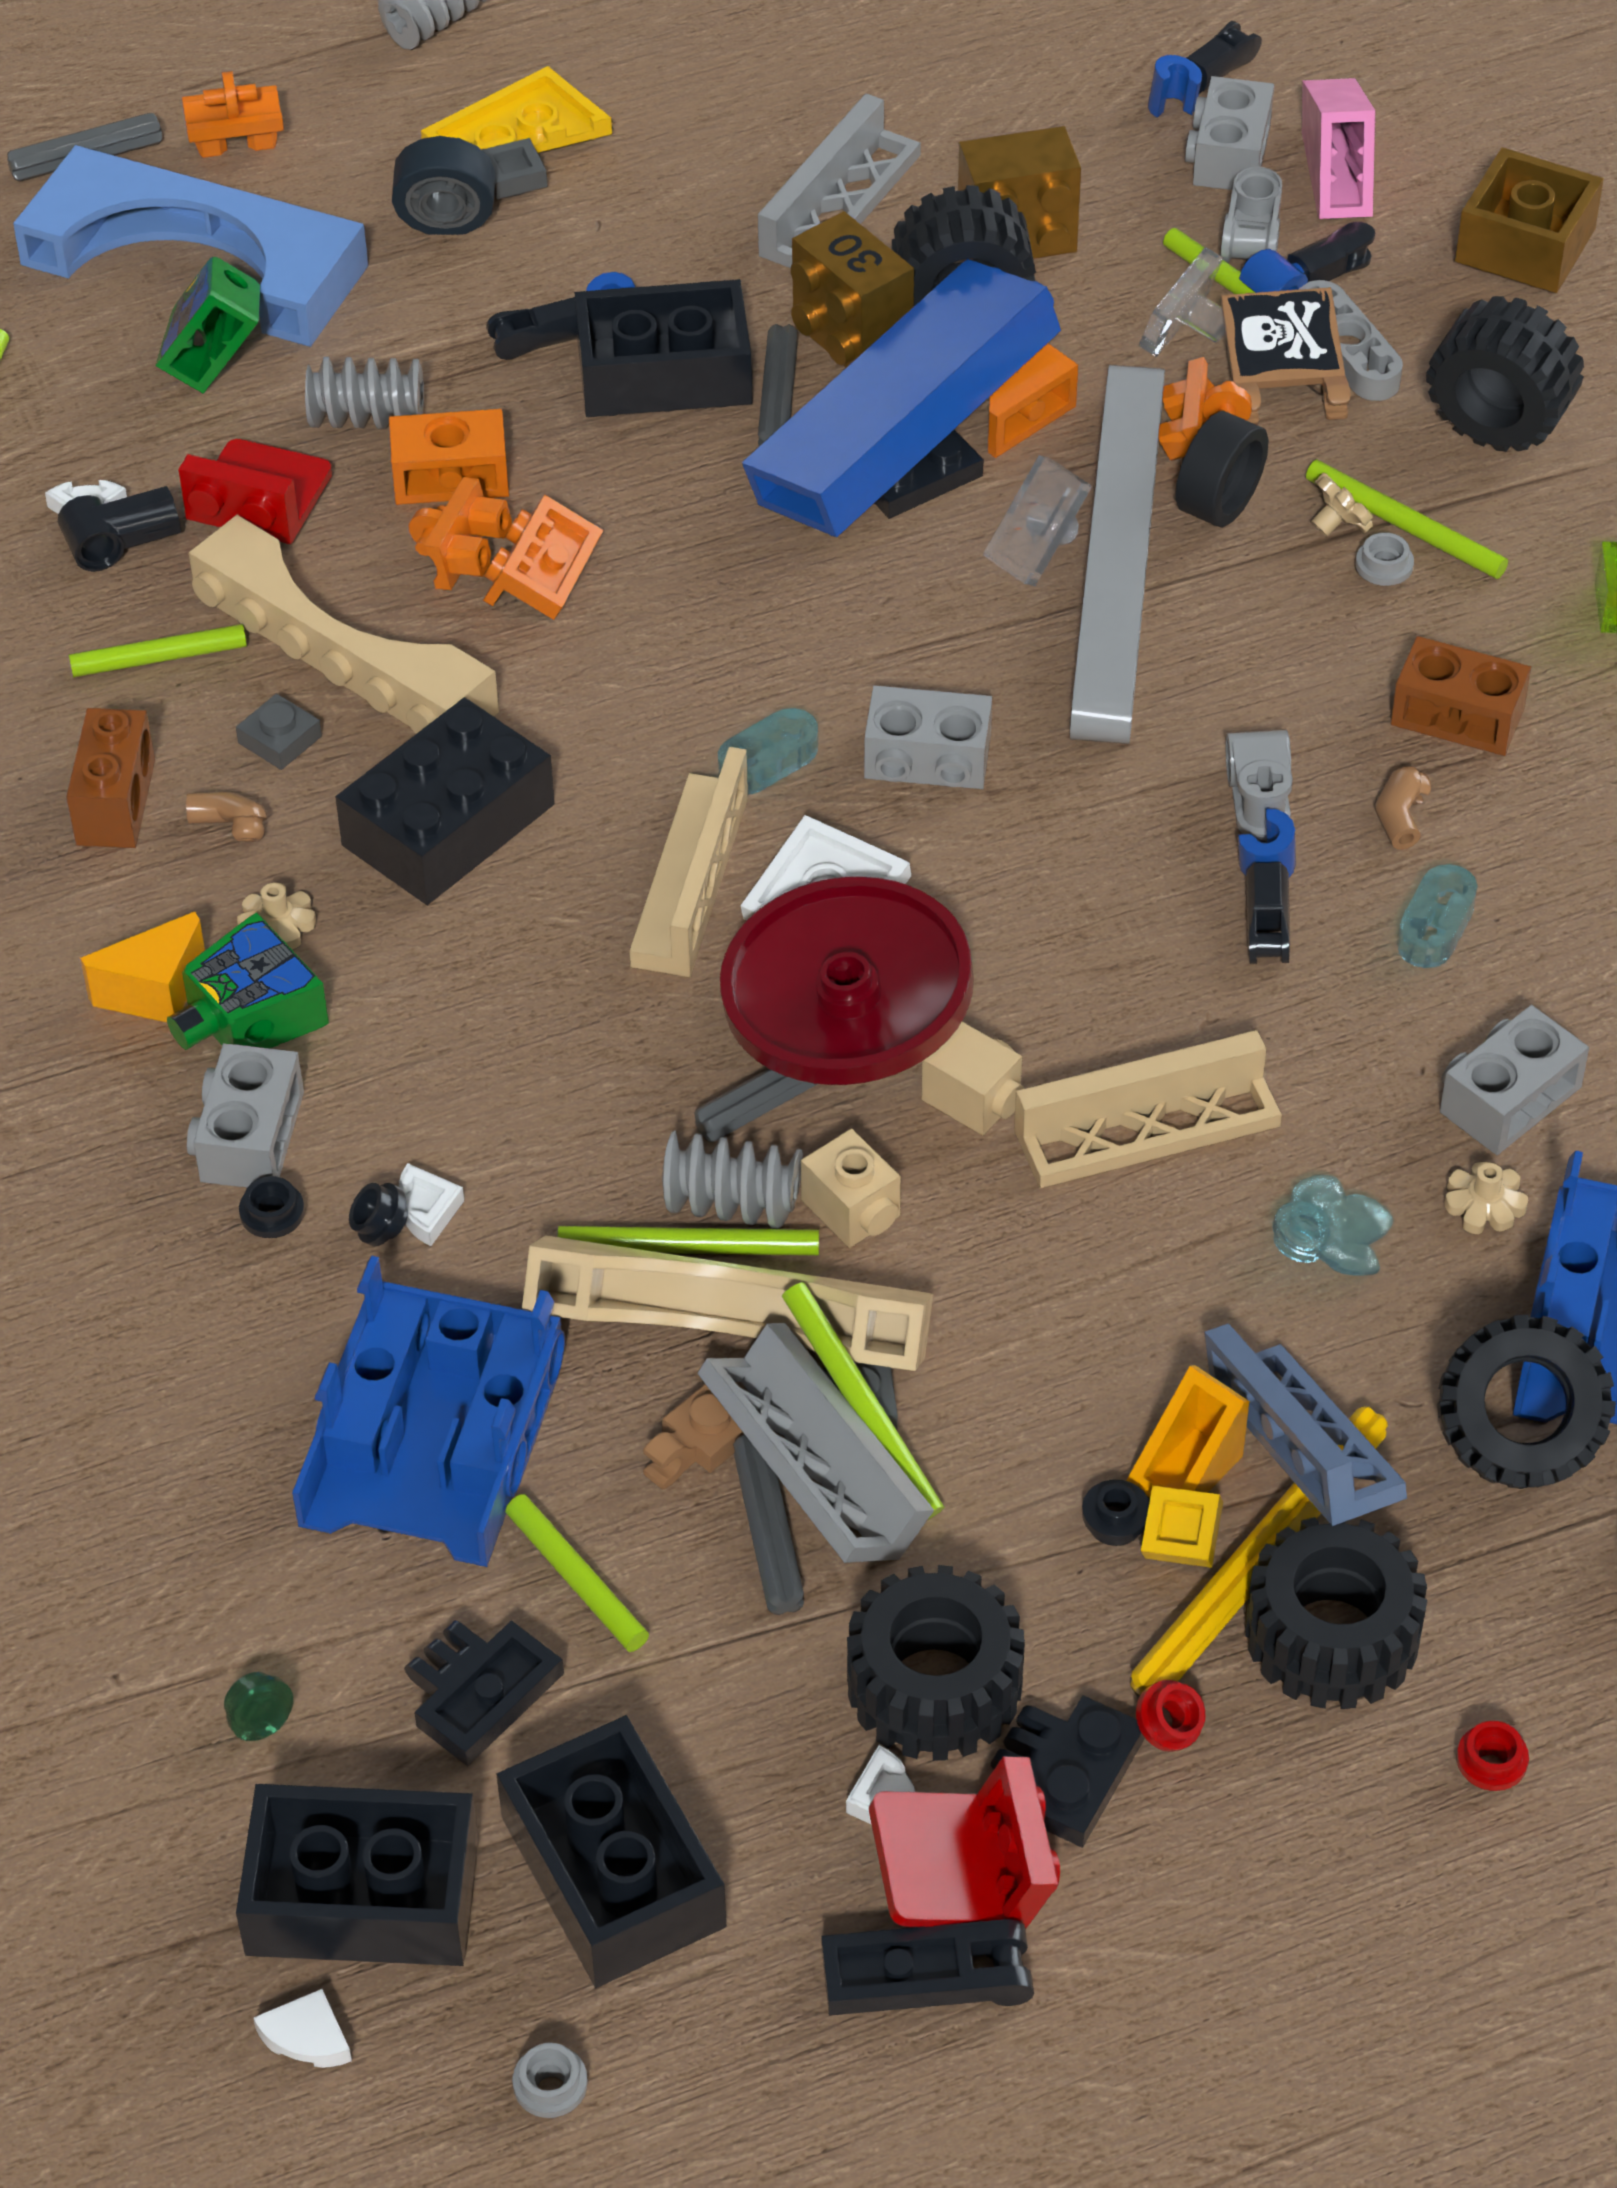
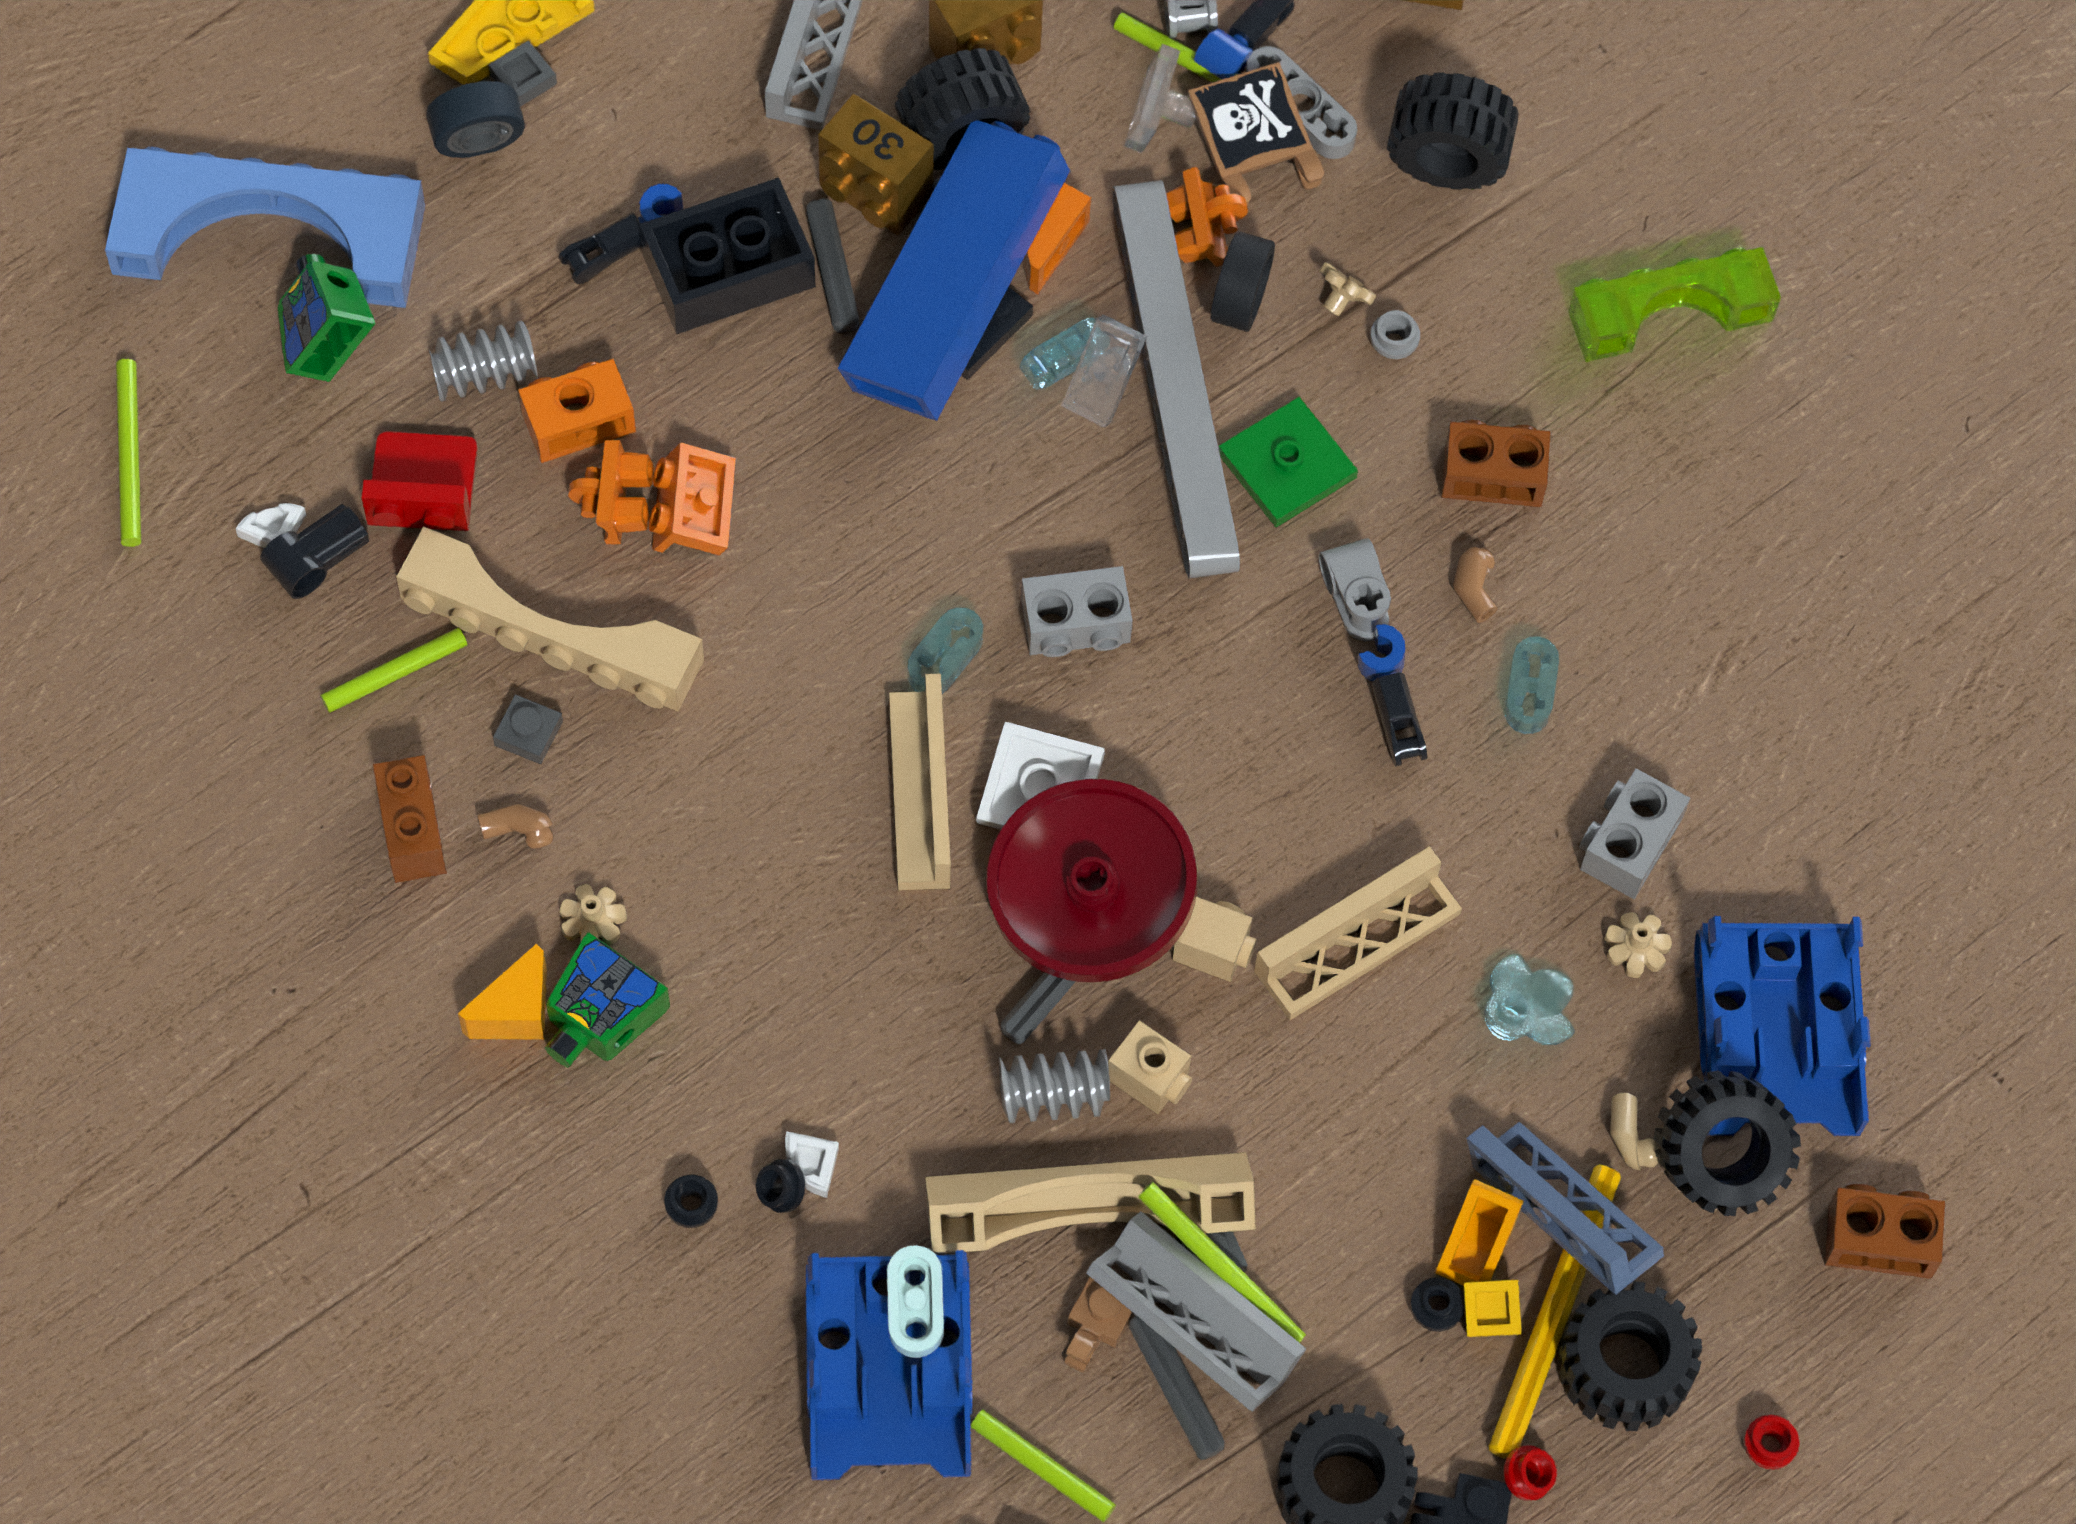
camera: 20 degrees left, 15 degrees up
(109, 138) = (123, 132): dark grey axle -> none
(233, 113) = (252, 74): orange hips -> none
(246, 1115) = (652, 1122): light grey brick -> none
(445, 800) = (699, 773): black brick -> none
(478, 1349) = (915, 1303): none -> light aqua plate
(700, 1240) = (1032, 1143): lime bar -> none
(991, 502) = (1057, 356): none -> clear light blue beam
(1221, 654) = (1287, 462): none -> green plate
(1406, 1382) = (1625, 1135): none -> tan arm
(1414, 522) = (1400, 284): lime bar -> none

